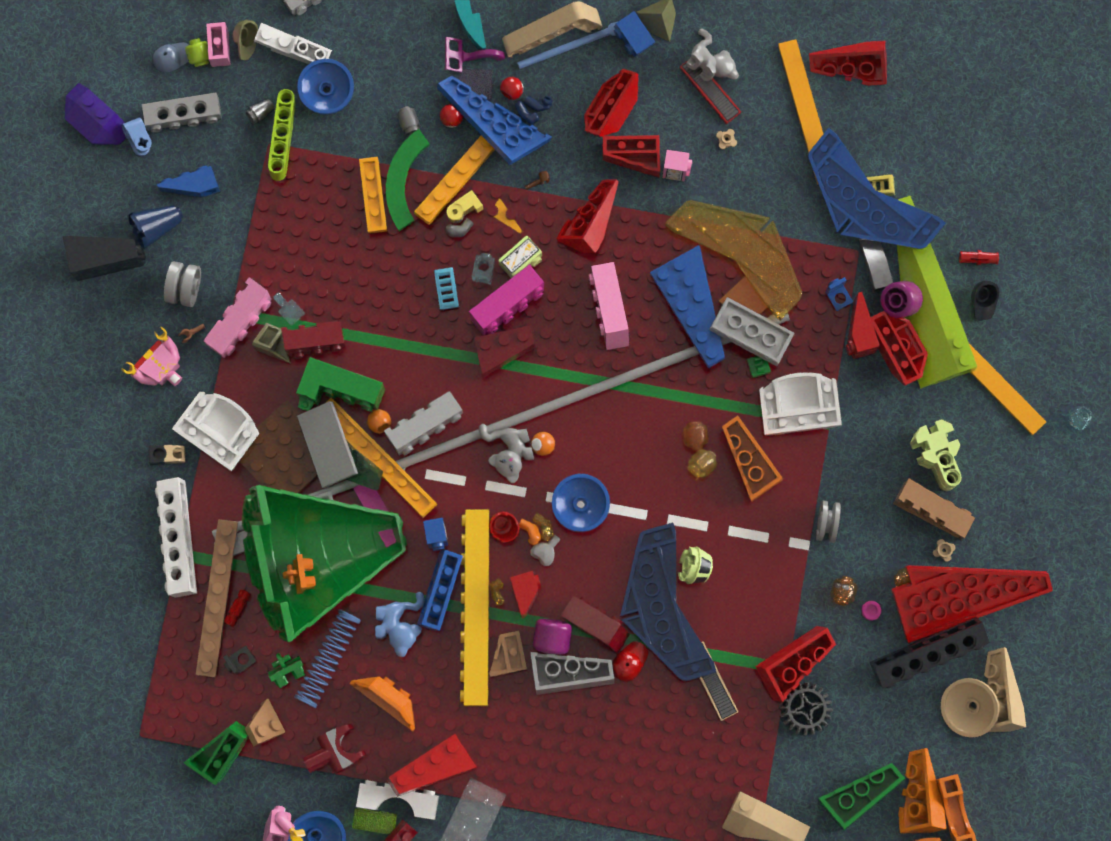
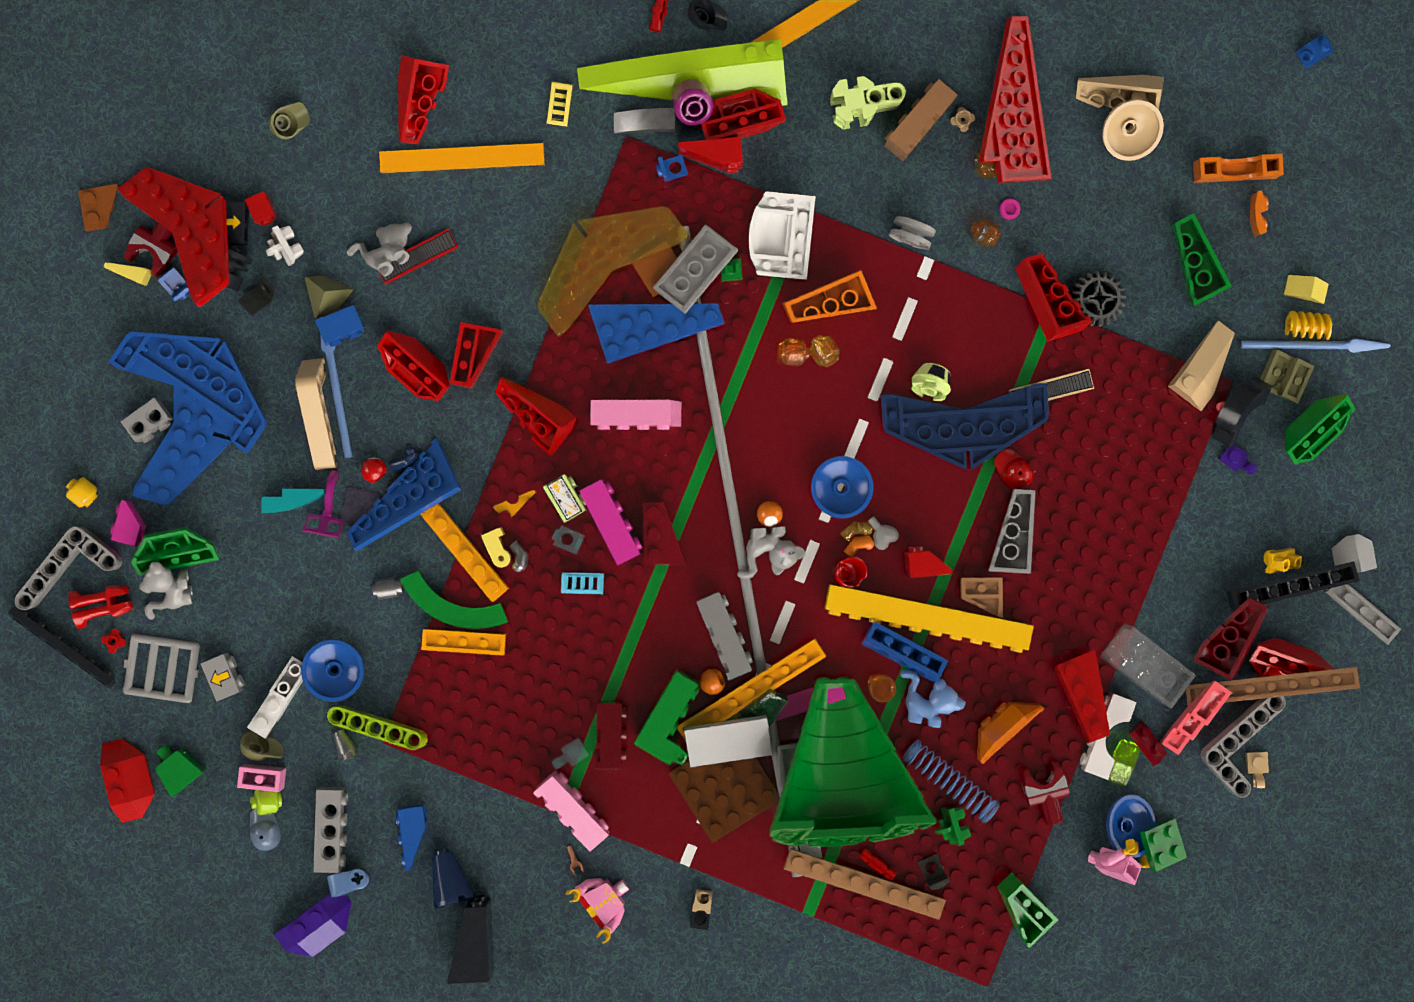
camera: 80 degrees left, 10 degrees up
(181, 526) = (800, 908): white brick -> none
(182, 284) = (522, 863): light grey wheel -> none
(217, 428) = (686, 852): white slope -> none
(264, 724) = (1007, 858): medium nougat wing -> none
(271, 343) = (603, 781): olive slope -> none
(302, 582) = (868, 793): orange hips -> none
(402, 576) = (881, 687): none -> clear orange wheel
(435, 534) = (845, 645): blue brick -> none
(450, 116) = (392, 542): red piece -> none
(496, 595) = (922, 593): clear yellow arm -> none
(539, 105) = (398, 444): dark blue arm -> none
(543, 176) = (479, 455): reddish brown hand -> none
(552, 636) = (975, 544): magenta head -> none
(596, 623) = (970, 497): dark red wedge -> none
(676, 165) = (497, 310): bright pink brick -> none
(728, 134) = (471, 255): tan plate -> none
(854, 198) = (590, 113): blue wing -> none
(883, 666) = (1067, 158): black brick -> none
(923, 802) = (1218, 200): orange wedge -> none

